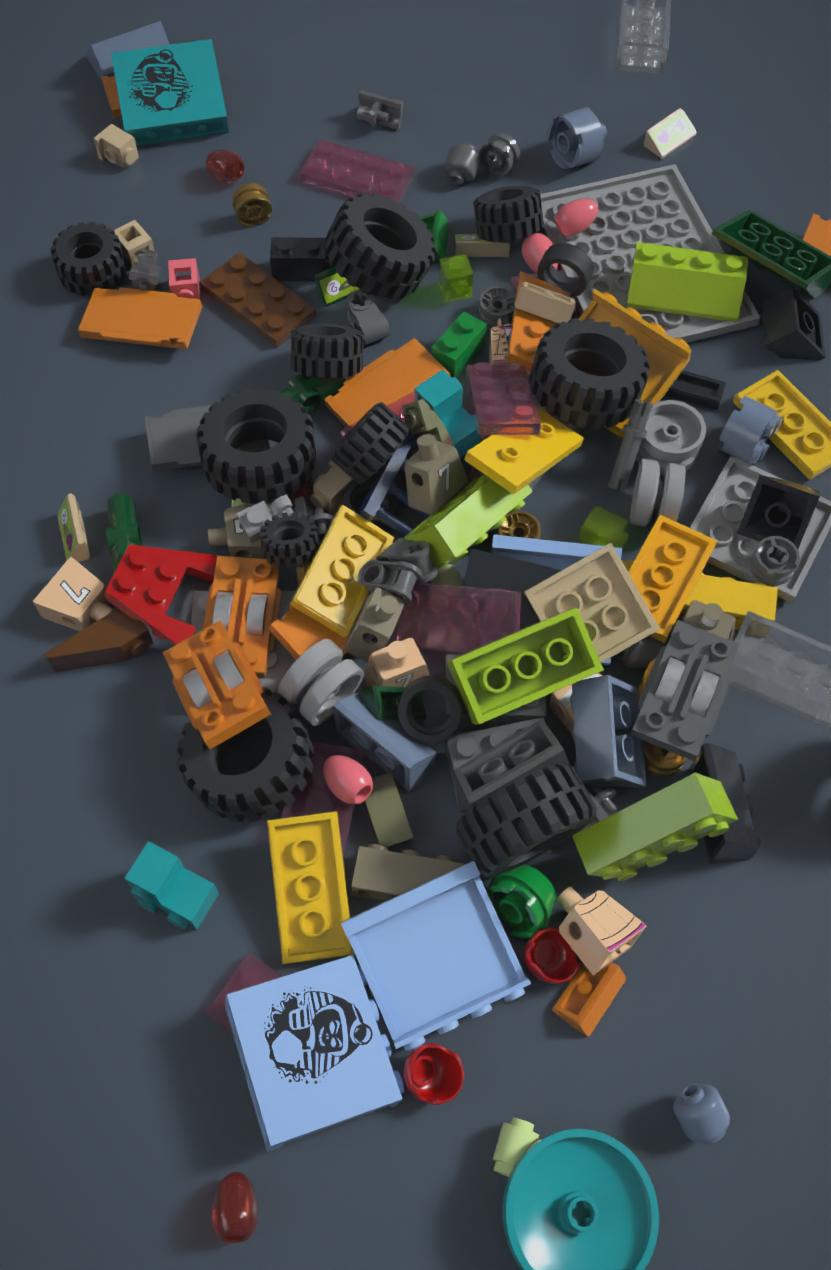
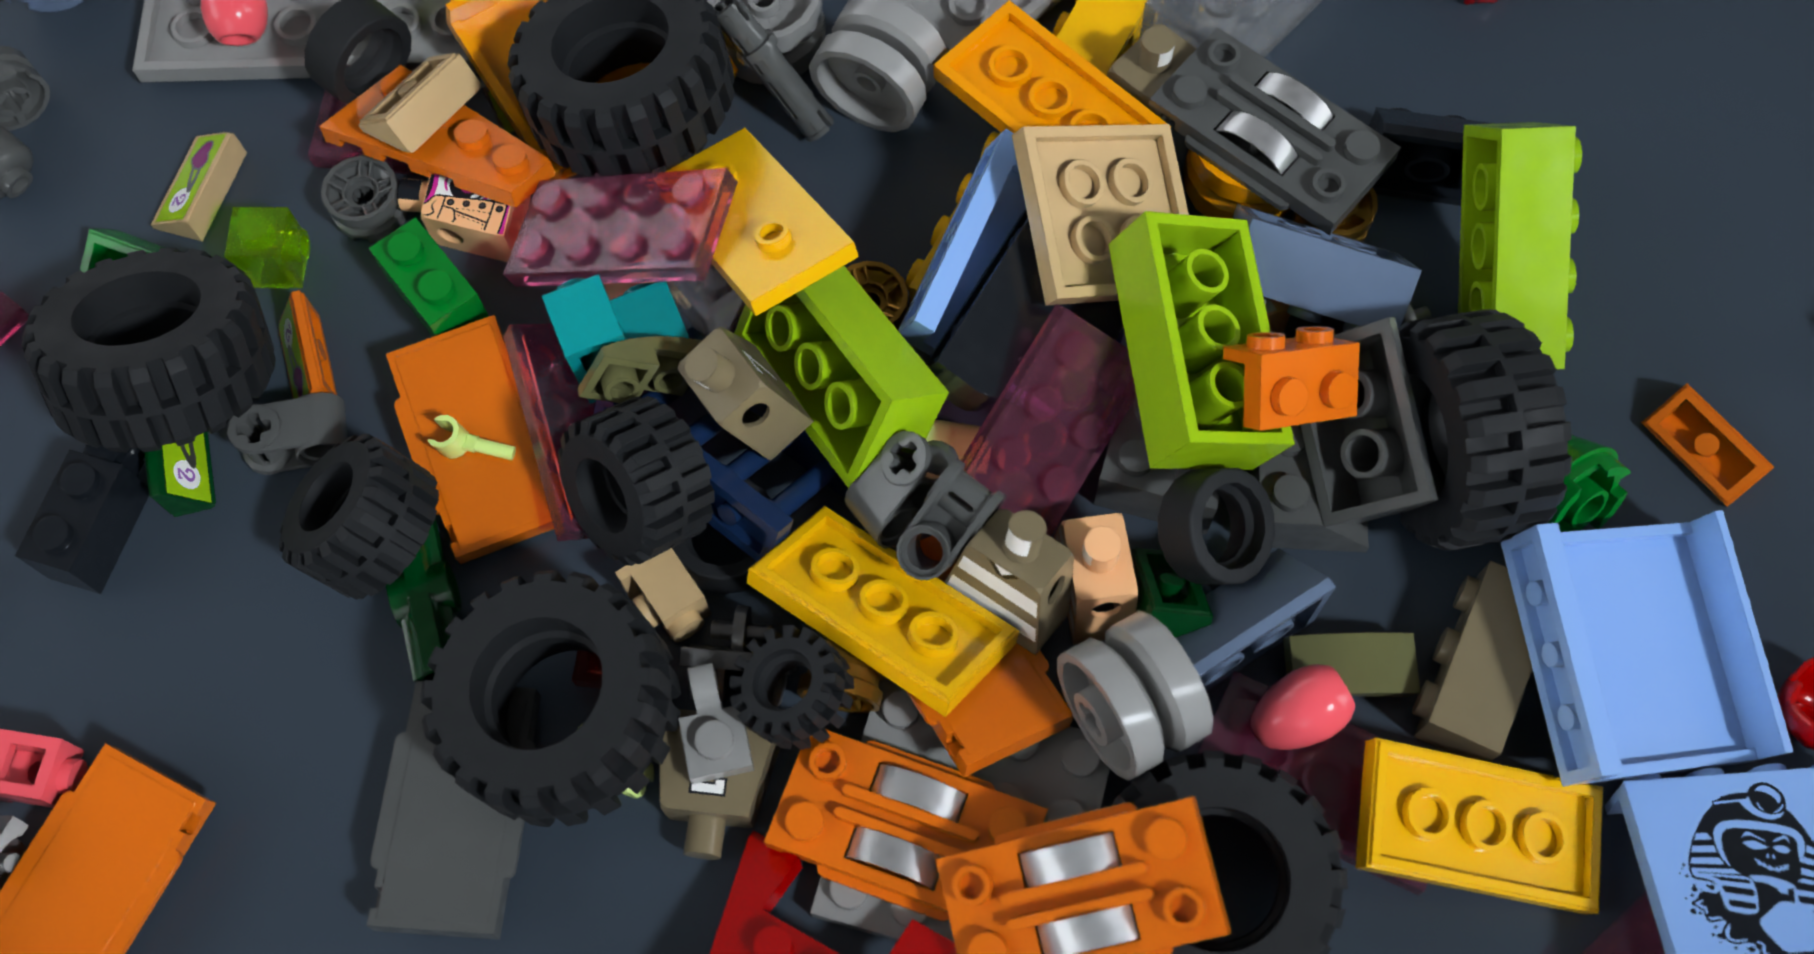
camera: 70 degrees left, 5 degrees up
(258, 299) = (138, 633): reddish brown plate -> none
(379, 379) = (462, 441): none -> yellowish green hand
(411, 313) = (305, 348): none -> orange slope
(508, 213) = (169, 109): black tyre -> none
(512, 710) = (1297, 377): none -> orange bracket
(534, 249) = (277, 93): coral animal -> none
(550, 957) = (1664, 475): red hair -> none
(597, 928) = (1635, 390): light nougat torso -> none
(603, 528) = (910, 173): clear neon green brick -> none

